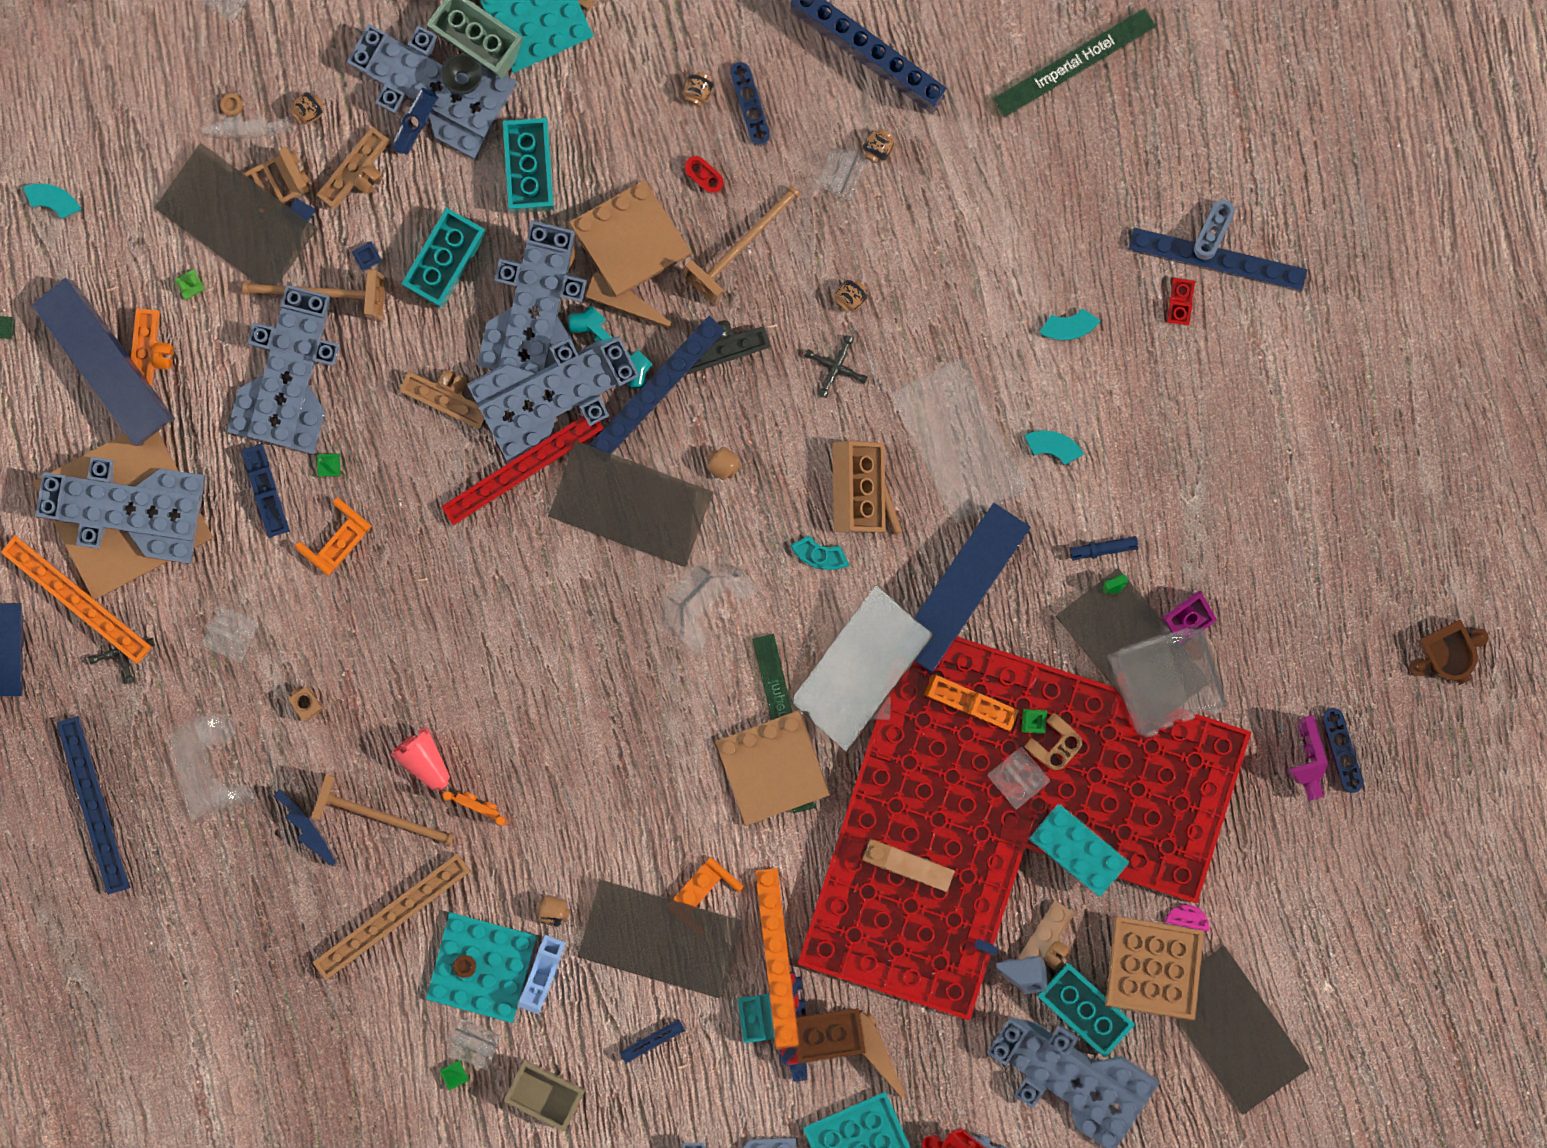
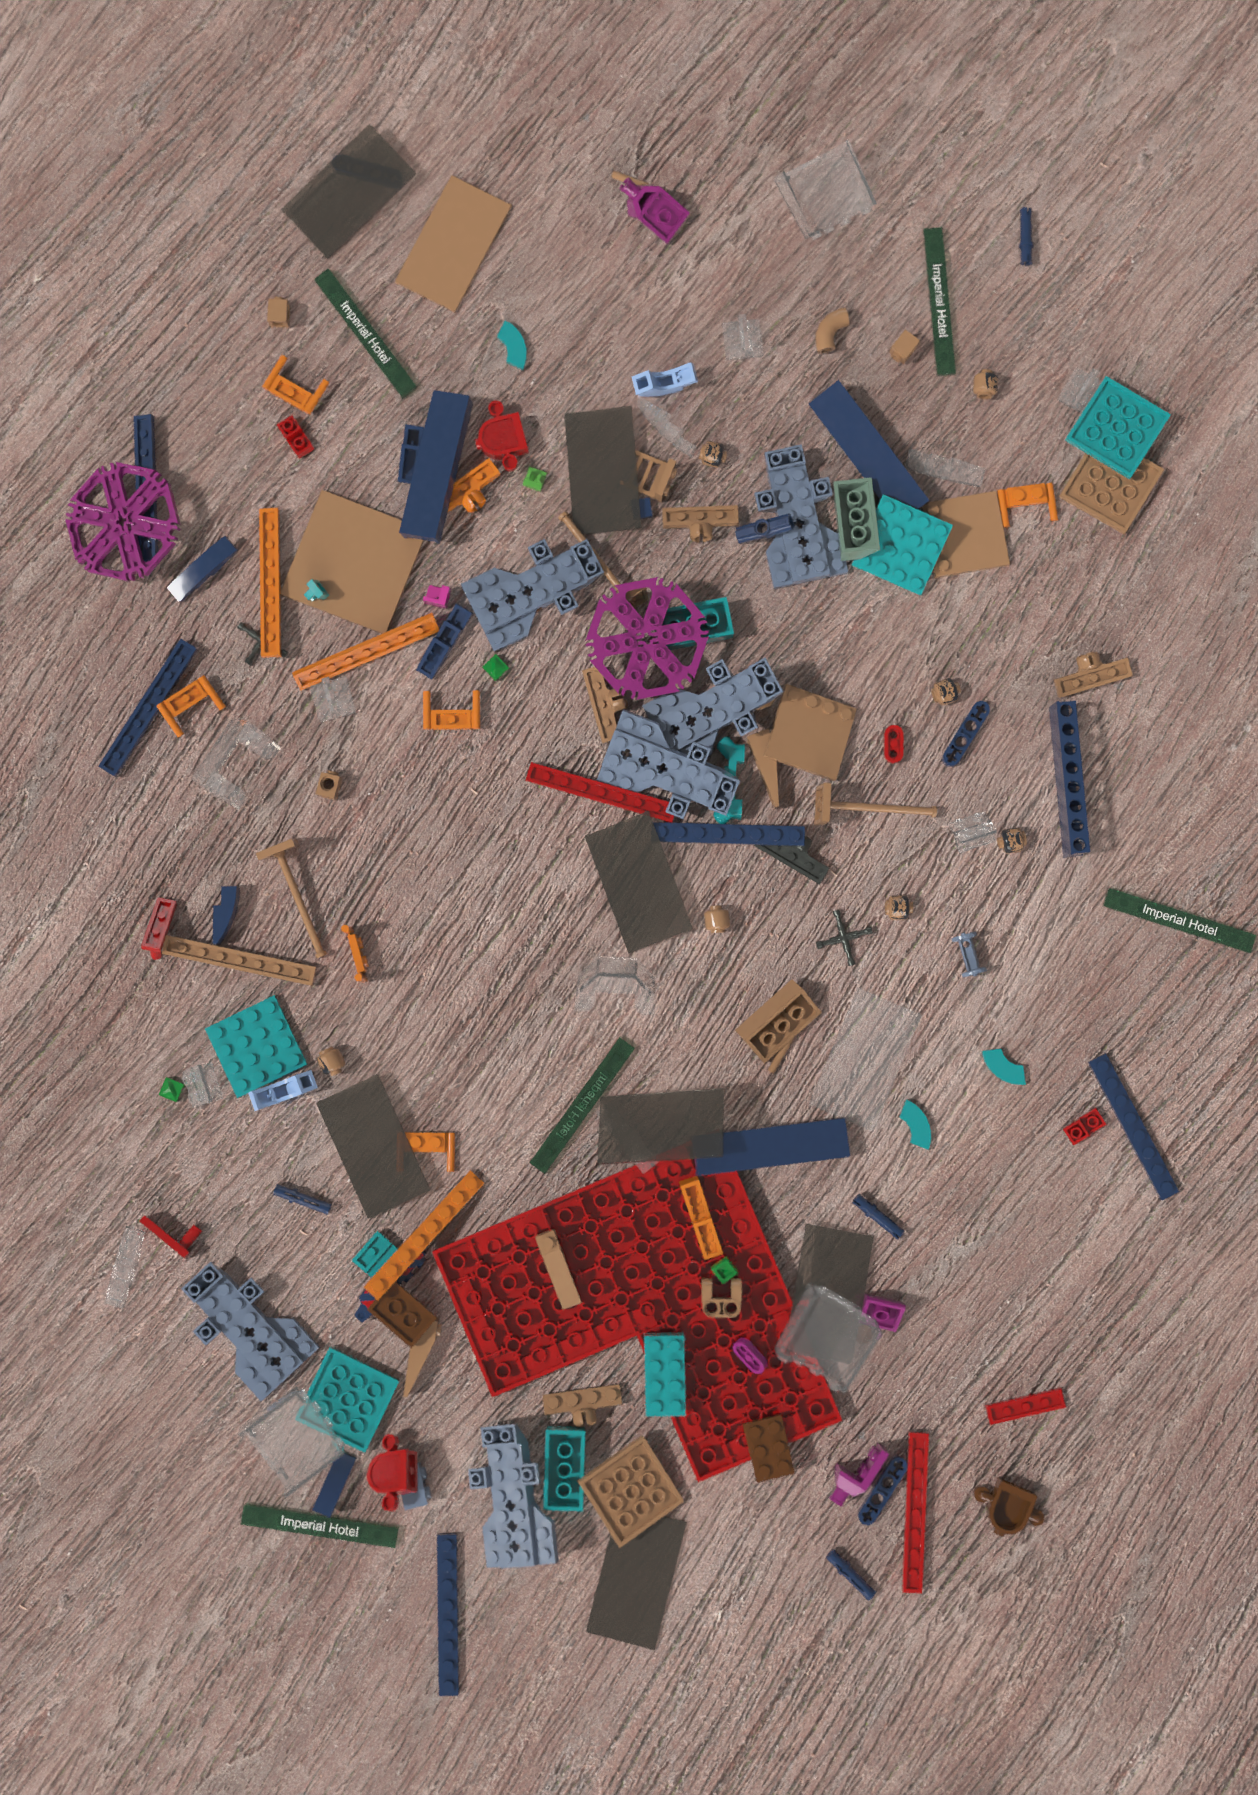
camera: 50 degrees right, 0 degrees up
(69, 374) = (409, 452): none -> dark blue slope
(102, 505) = (345, 545): sand blue piece -> none
(115, 764) = (187, 698): none -> orange plate
(121, 564) = (316, 591): none -> teal tile
(127, 280) = (502, 437): none -> red piece
(205, 94) = (663, 383): none -> light blue arch
(213, 567) = (366, 651): none -> orange plate
(219, 461) = (437, 596): none -> dark pink panel
(231, 105) = (673, 405): medium nougat tile -> none
(300, 962) = (158, 927): none -> red piece
(311, 834) = (247, 863): dark blue slope -> none
(339, 893) = (225, 913): none -> dark blue slope
(367, 256) = (651, 571): dark blue tile -> none
(401, 307) = (636, 624): none -> magenta plate
(422, 759) = (356, 892): coral cone -> none
(461, 64) = (826, 525): pearl dark grey piece -> none
(464, 966) = (246, 1035): reddish brown tile -> none
(528, 165) = (800, 626): teal brick -> none
(544, 1095) = (206, 1160): dark tan piece -> none
(772, 768) = (546, 1124): medium nougat plate -> none
(818, 556) = (710, 1033): teal tile -> none
(945, 270) = (969, 954): none -> sand blue hose
(987, 947) = (548, 1366): dark blue tile -> none
(1018, 778) = (678, 1292): clear bracket -> none
(1025, 974) = (552, 1409): sand blue slope -> none
(1115, 584) = (860, 1245): green tile -> none
(1126, 762) = (750, 1355): none -> magenta plate
(1189, 917) = (684, 1482): dark pink tile -> none
(1214, 222) = (1157, 1107): sand blue plate -> none
(1220, 816) = (768, 1448): none -> reddish brown plate
(1376, 563) = (1025, 1406): none -> red tile
(1385, 738) = (915, 1512): none -> red plate
(1390, 840) = (843, 1568): none -> dark blue pin

